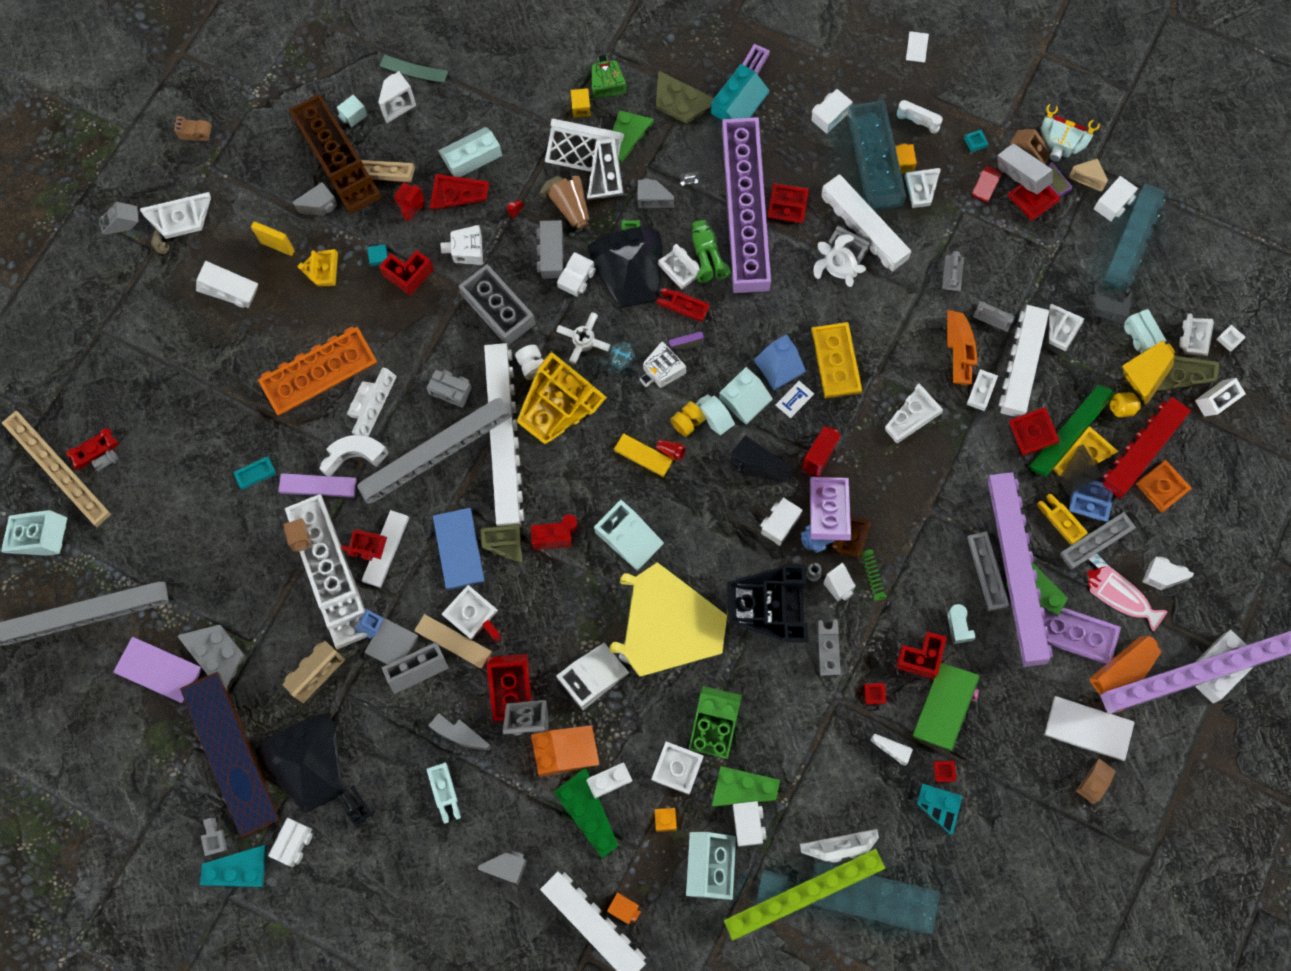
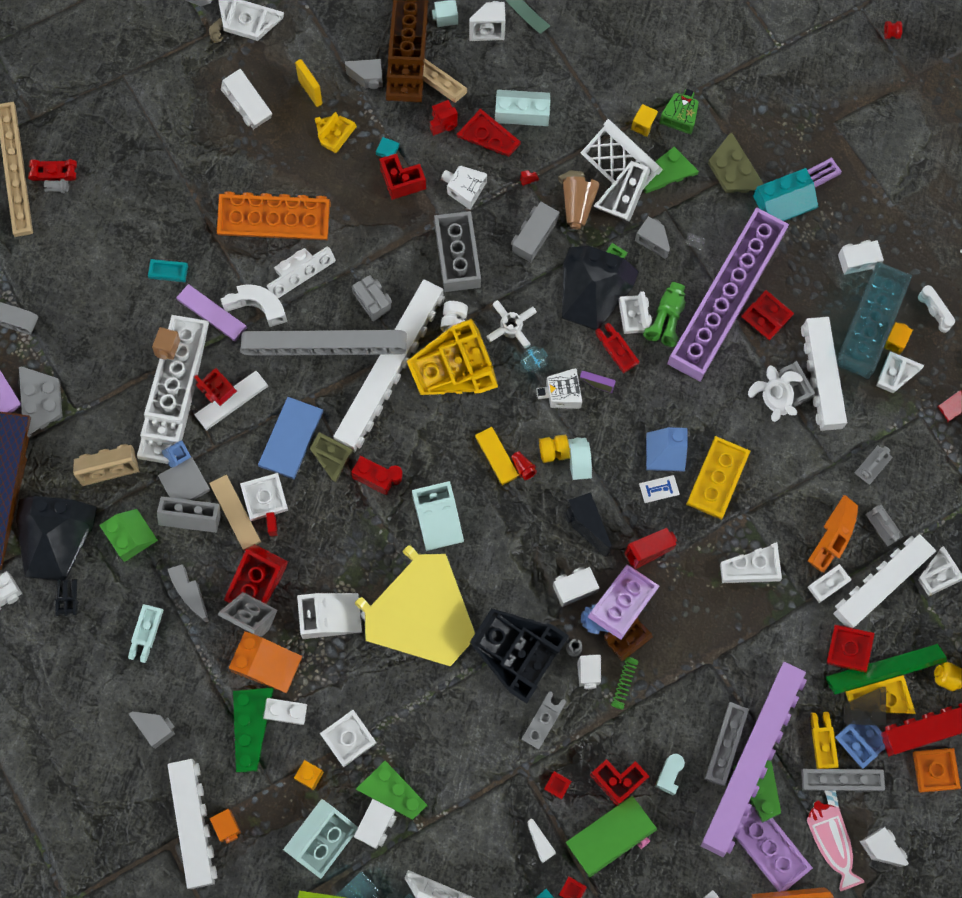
camera: 25 degrees right, 0 degrees up
(372, 718) = (128, 533): none -> bright green slope
(576, 274) = (541, 266): white brick -> none
(715, 722) = (405, 720): bright green slope -> none
(745, 396) = (617, 459): light aqua slope -> none

